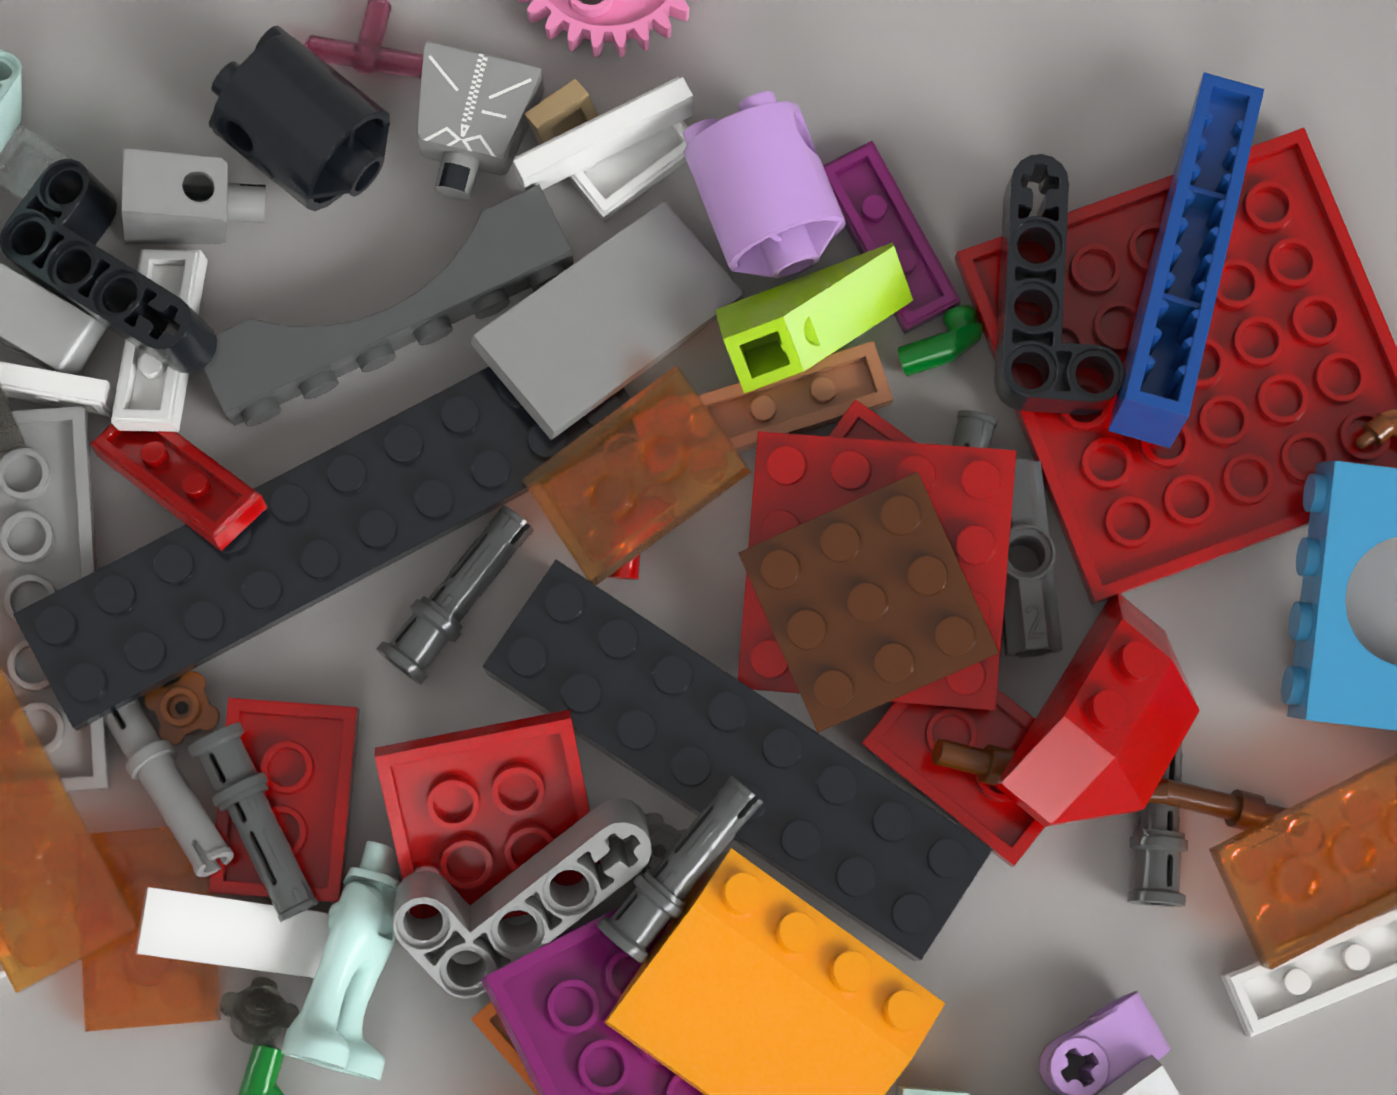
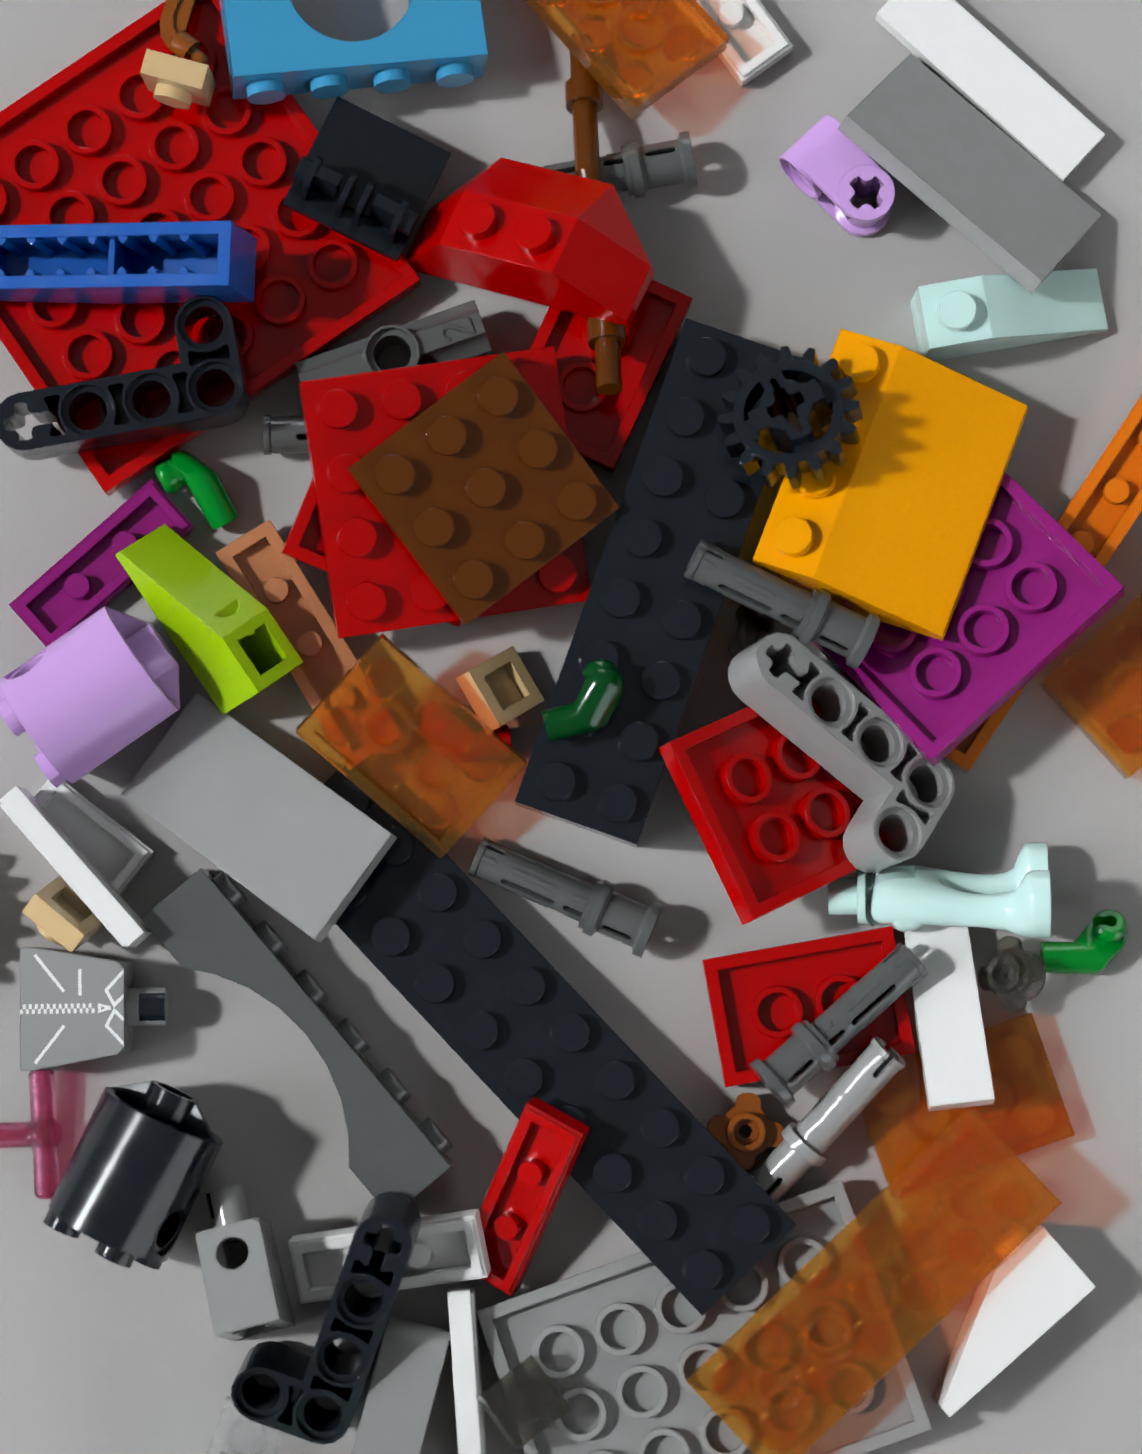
camera: 100 degrees left, 5 degrees up
(626, 653) = (593, 705): none -> dark green arm
(672, 579) = (500, 689): none -> tan plate
(865, 946) = (764, 430): none -> black gear
(1207, 572) = (366, 179): none -> black hinge
(1344, 411) = (177, 80): none -> tan plate

